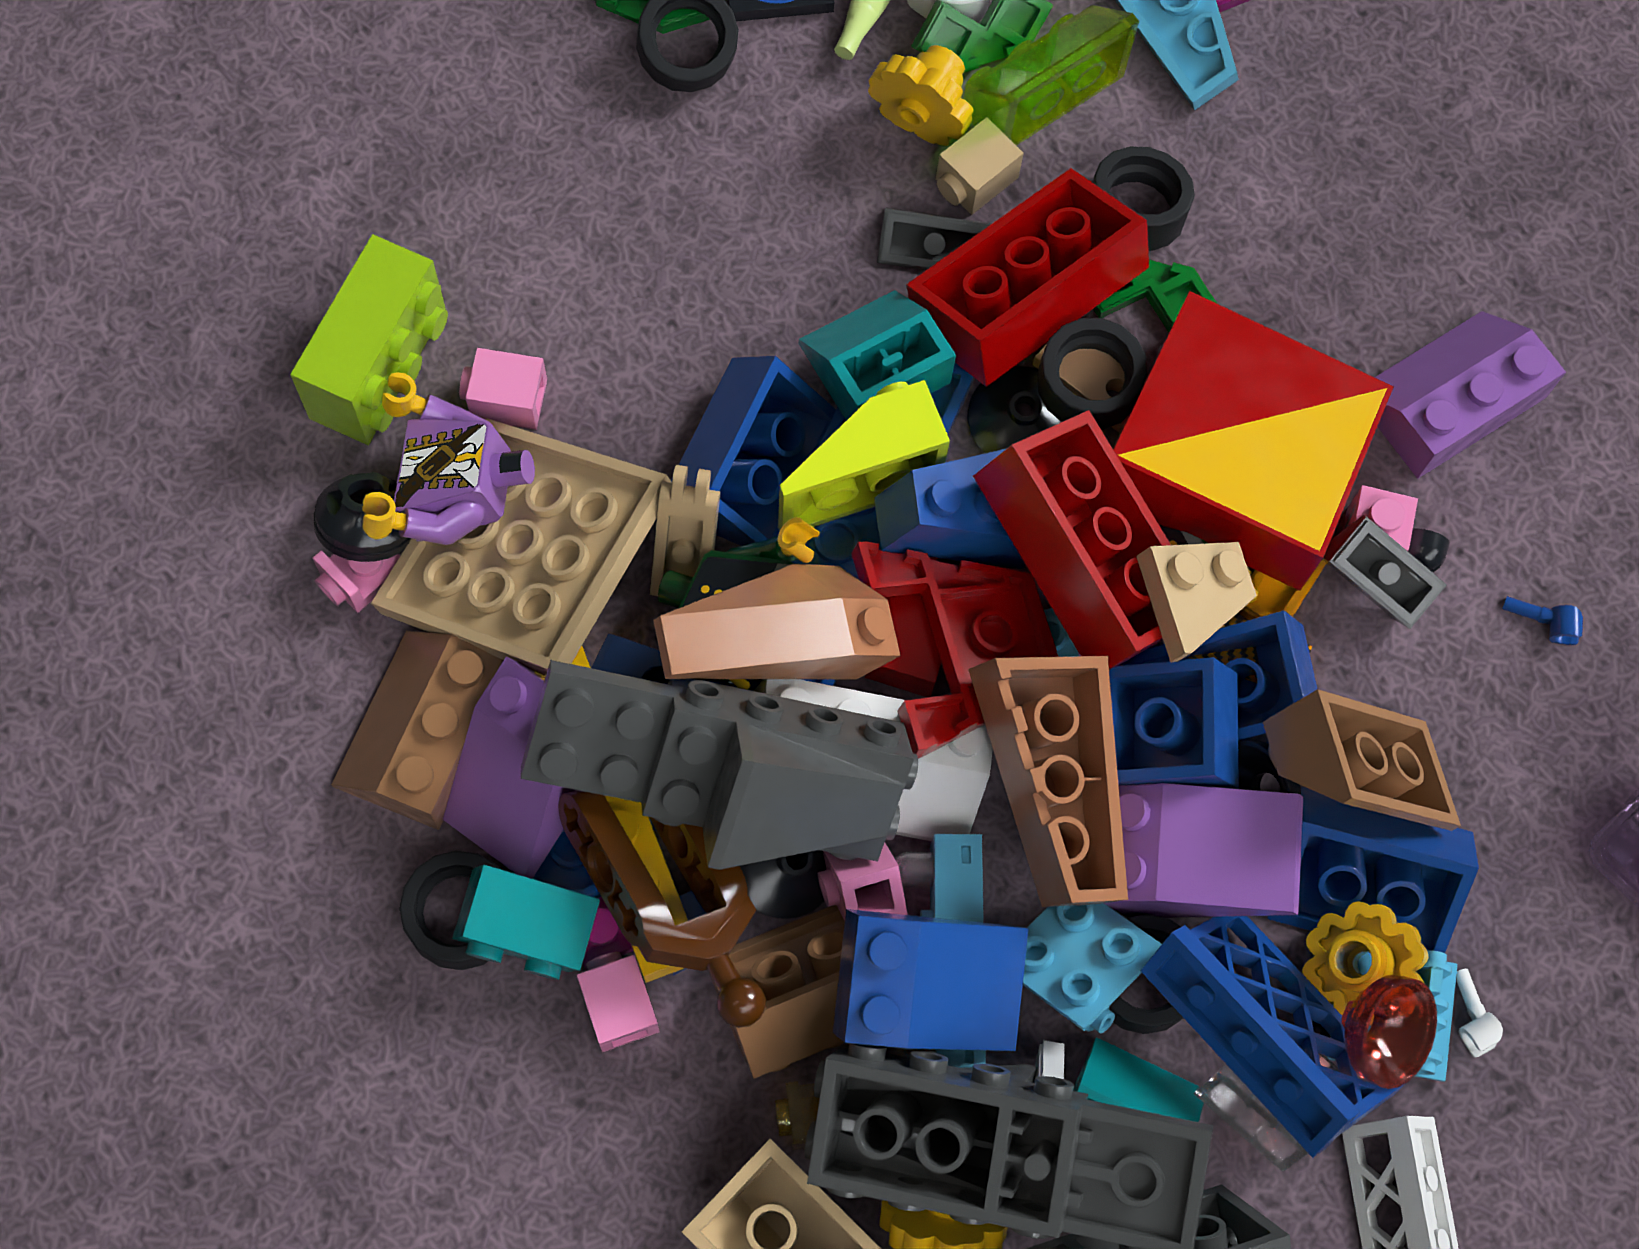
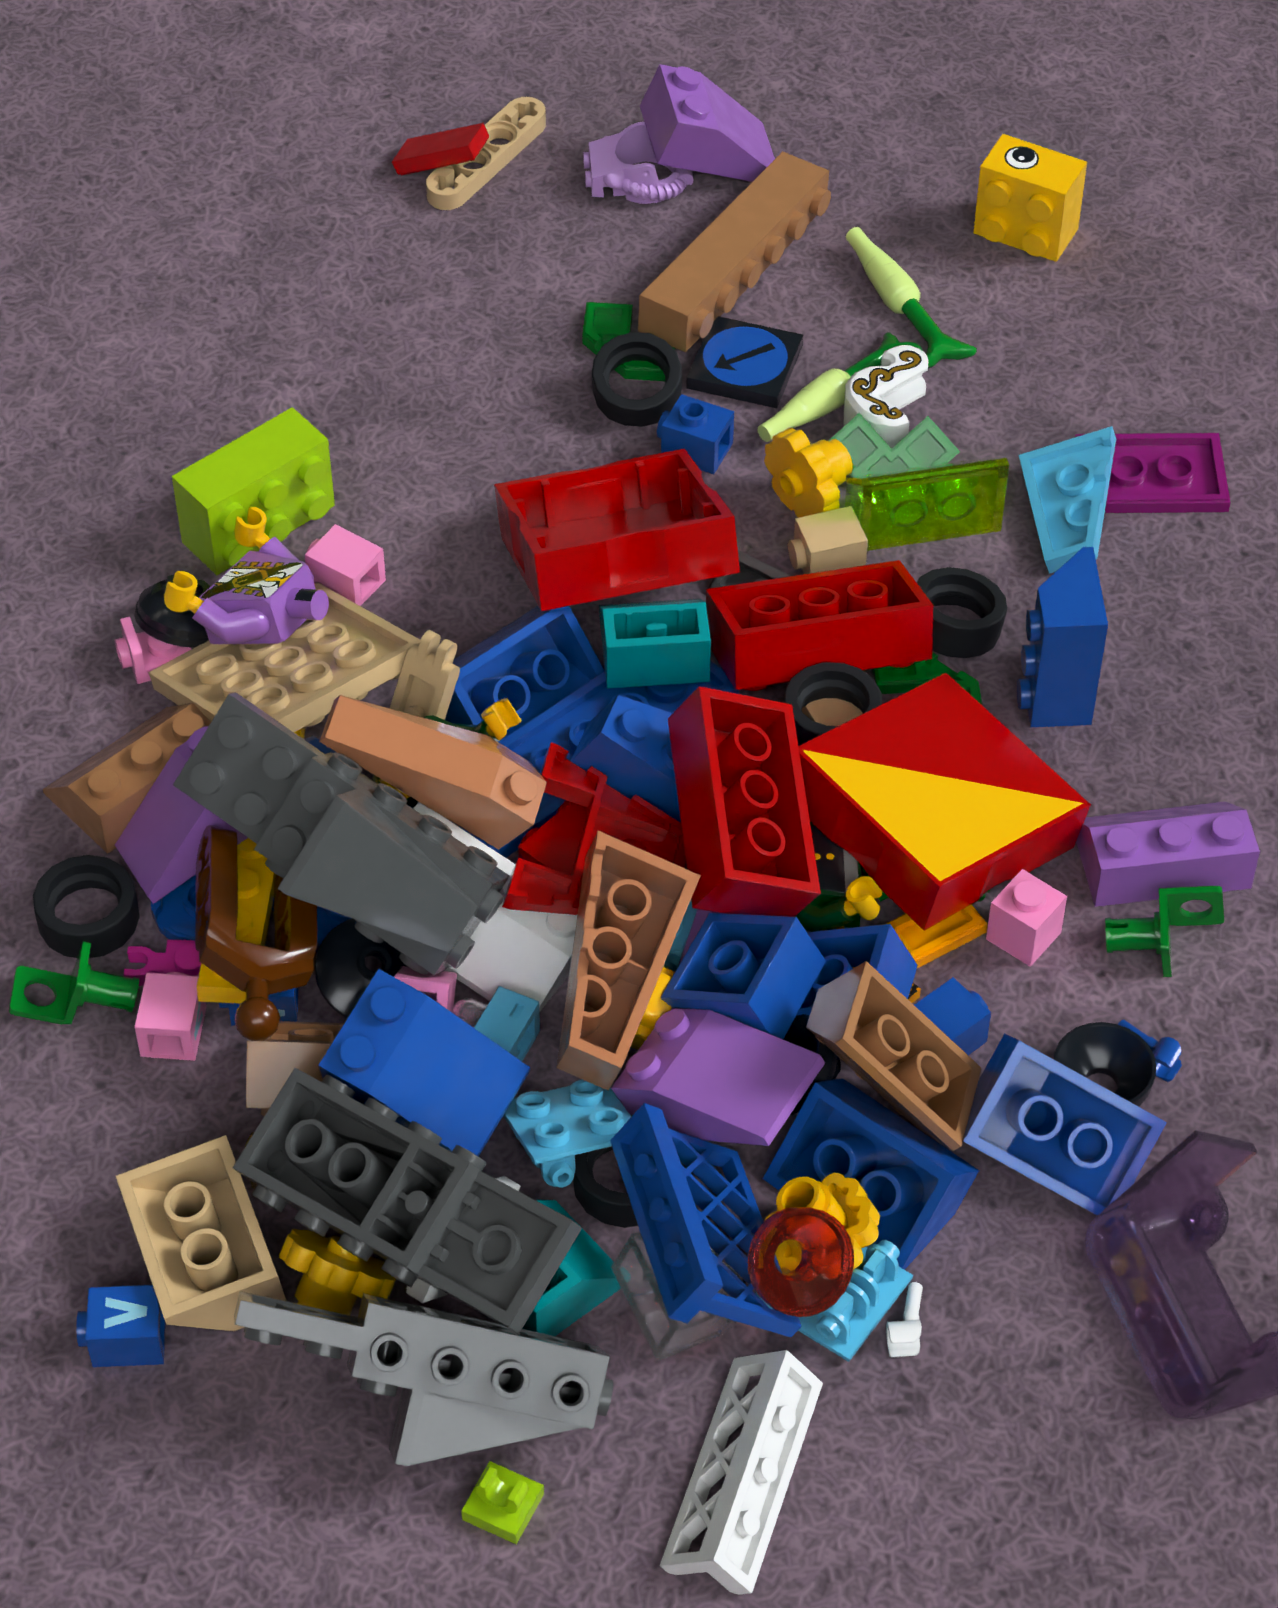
camera: 30 degrees right, 20 degrees down
(501, 1014) = (72, 990): none -> green bracket
(525, 921) = (127, 914): teal brick -> none
(777, 245) = (616, 529): none -> red tile
(778, 81) = (698, 428): none -> blue brick
(866, 455) = (572, 685): neon yellow slope -> none
(1194, 591) = (811, 865): tan wing -> none
(1290, 210) = (1065, 646): none -> blue slope
(1366, 670) = (958, 1014): none -> blue brick
(1383, 571) = (1007, 942): dark grey slope -> none
(1429, 548) = (1064, 954): black hinge -> none
(1499, 487) = (1155, 931): none -> green bracket
(1525, 755) = (1059, 1126): none -> blue slope
(1545, 651) = (1113, 1052): none -> black piece

